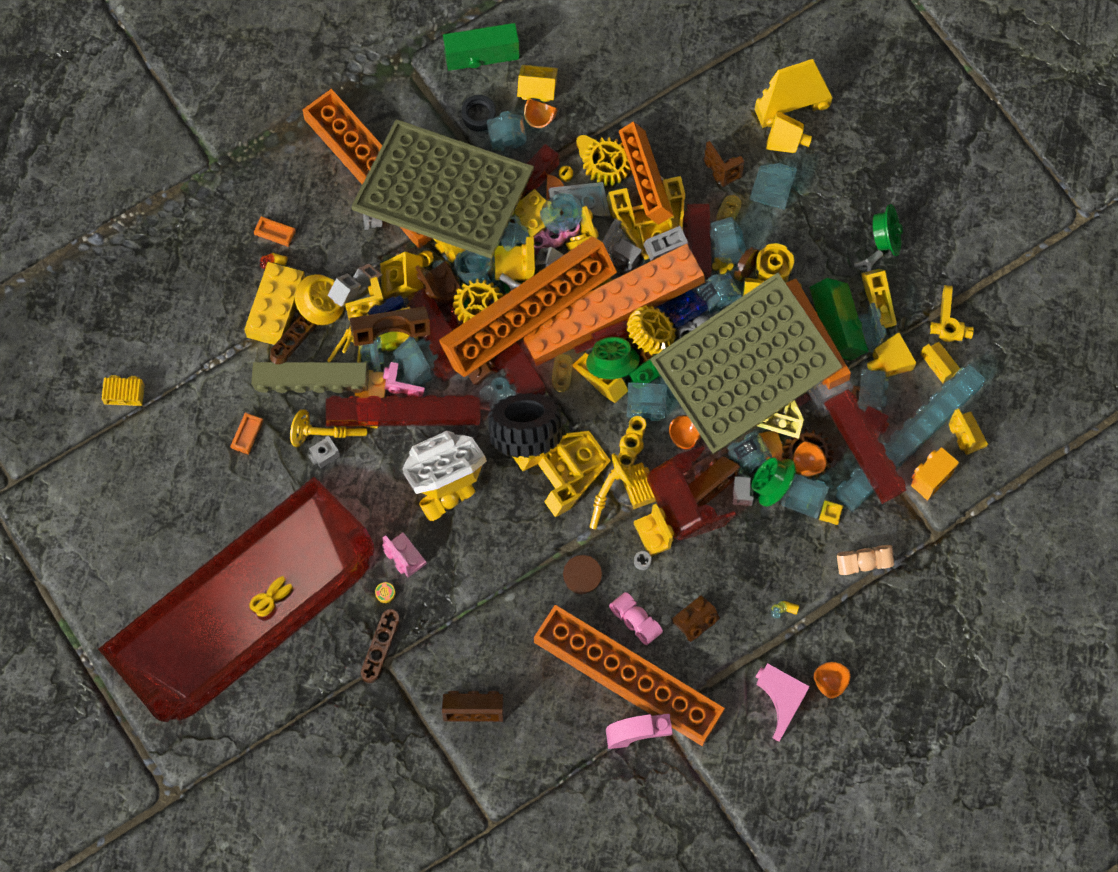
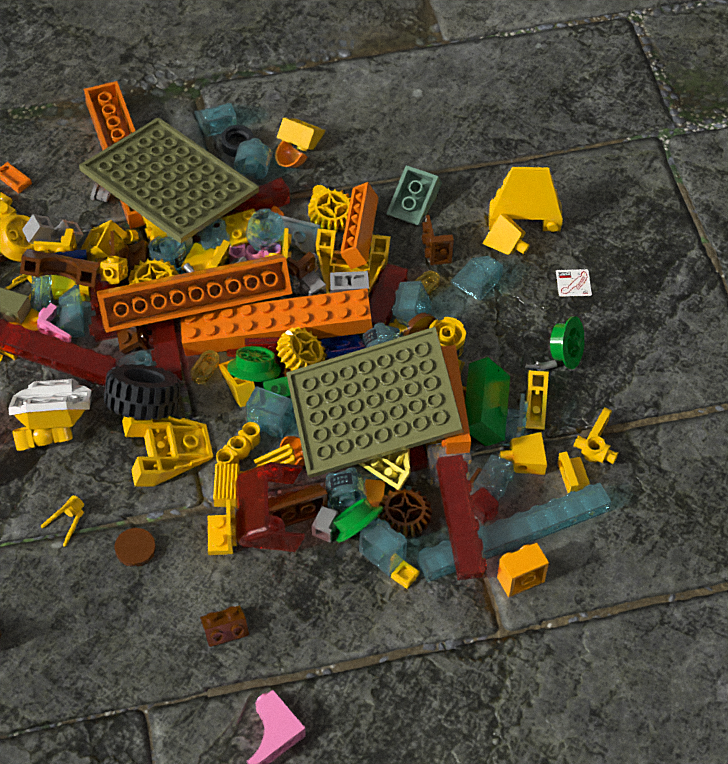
camera: 20 degrees right, 15 degrees down
(440, 308) = (113, 269): none -> yellow brick
(444, 92) = (216, 119): none -> clear light blue slope
(481, 46) = (263, 90): green brick -> none
(508, 558) = (71, 507): none -> yellow plant
(568, 176) = (291, 210): yellow hinge -> none
(617, 238) = (301, 267): none -> reddish brown bracket
(617, 473) = (209, 460): yellow dish -> none
(628, 674) = (131, 655): orange brick -> none
(636, 618) = (164, 603): bright pink piece -> none
(636, 728) = (112, 702): bright pink arch -> none
(647, 556) = (202, 559): light grey bush -> none
(678, 118) = (414, 195): none -> sand green slope
(683, 435) = (278, 455): none -> yellow tile
(782, 607) = (316, 644): arm -> none
(809, 459) = (399, 511): orange helmet -> none
(832, 679) = (332, 731): orange helmet -> none
(864, 159) = (573, 282): none -> white sticker
(865, 559) = (418, 628): light nougat piece -> none
(967, 431) = (575, 545): yellow bracket -> none

